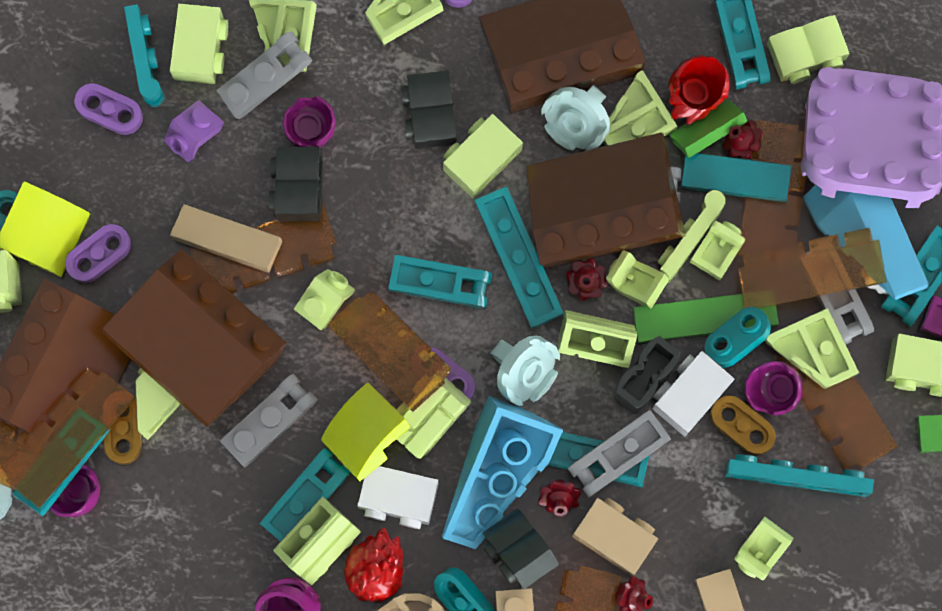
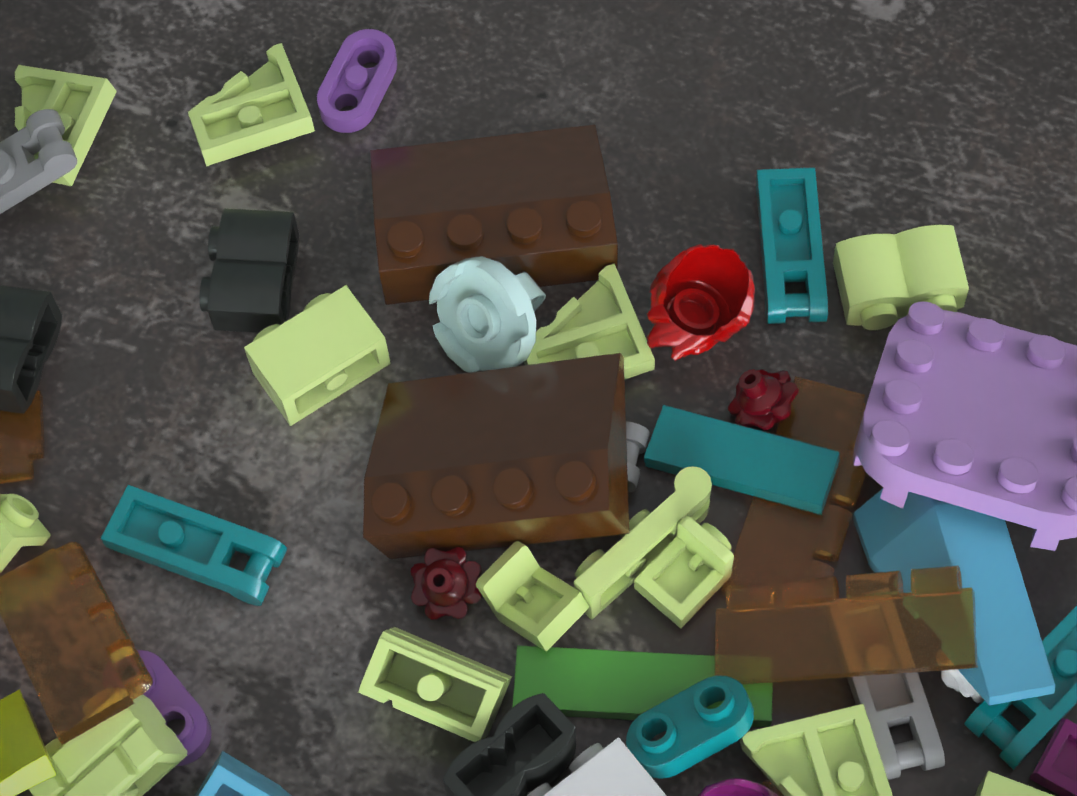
camera: 15 degrees right, 15 degrees down
(309, 122) = (50, 256): magenta hair -> none
(519, 258) = (333, 518): teal plate -> none
(525, 368) = (298, 715): light aqua tile -> none
(704, 132) = (707, 372): bright green tile -> none

